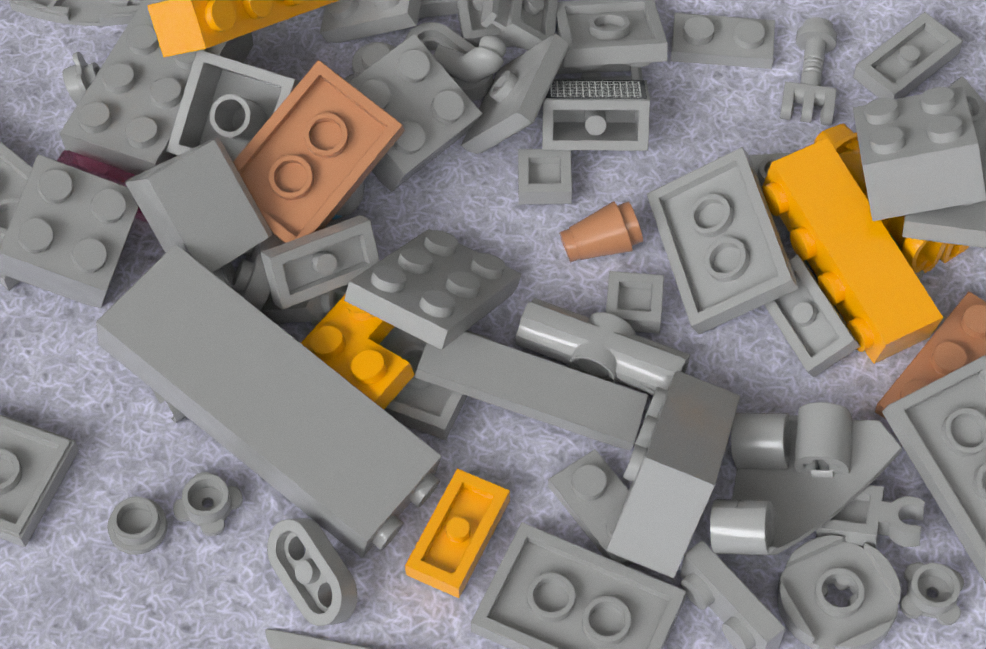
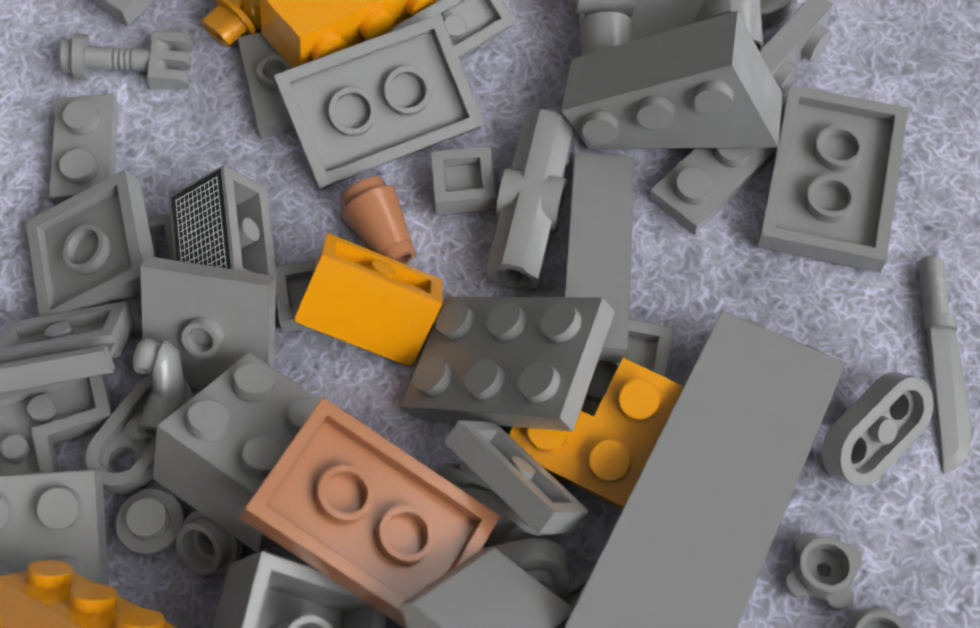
camera: 100 degrees left, 5 degrees up
(457, 533) = (785, 297): light orange plate -> none
(527, 211) = (370, 300): none -> light orange panel

